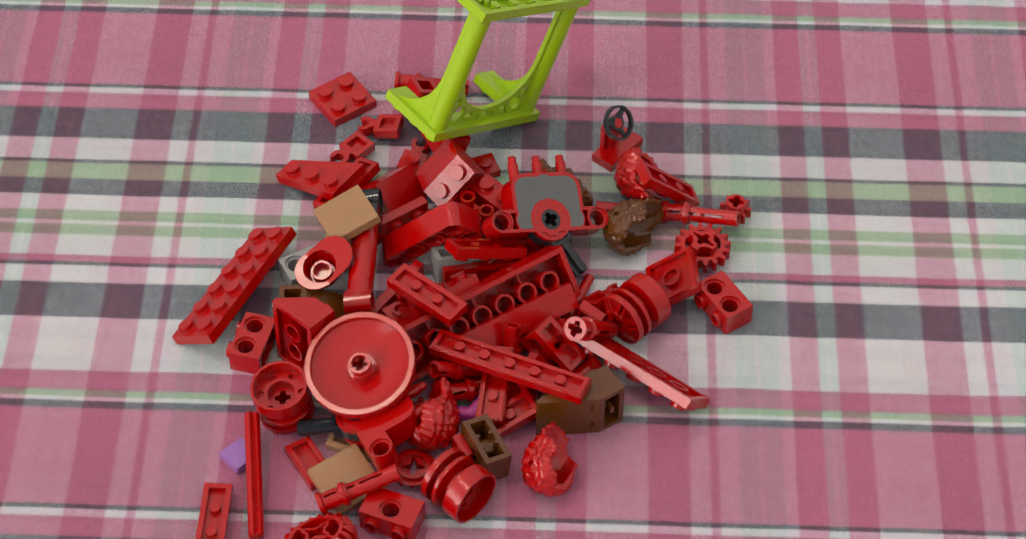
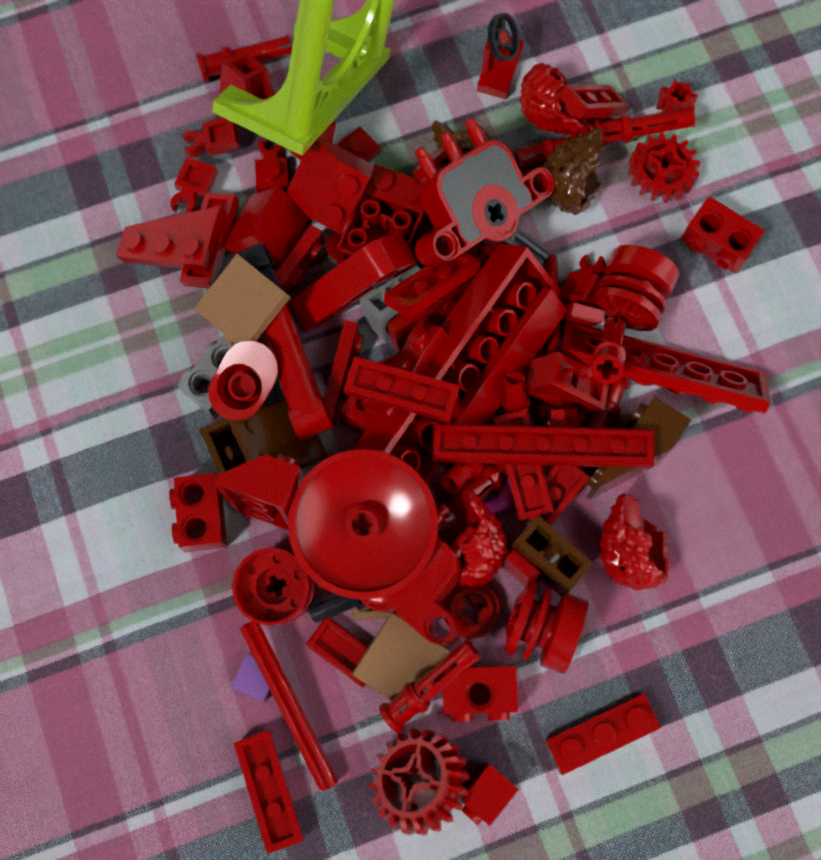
camera: 20 degrees left, 25 degrees up
(234, 285) = (140, 441): red plate -> none
(342, 99) = (146, 115): red plate -> none
(677, 275) = (656, 221): red tile -> none

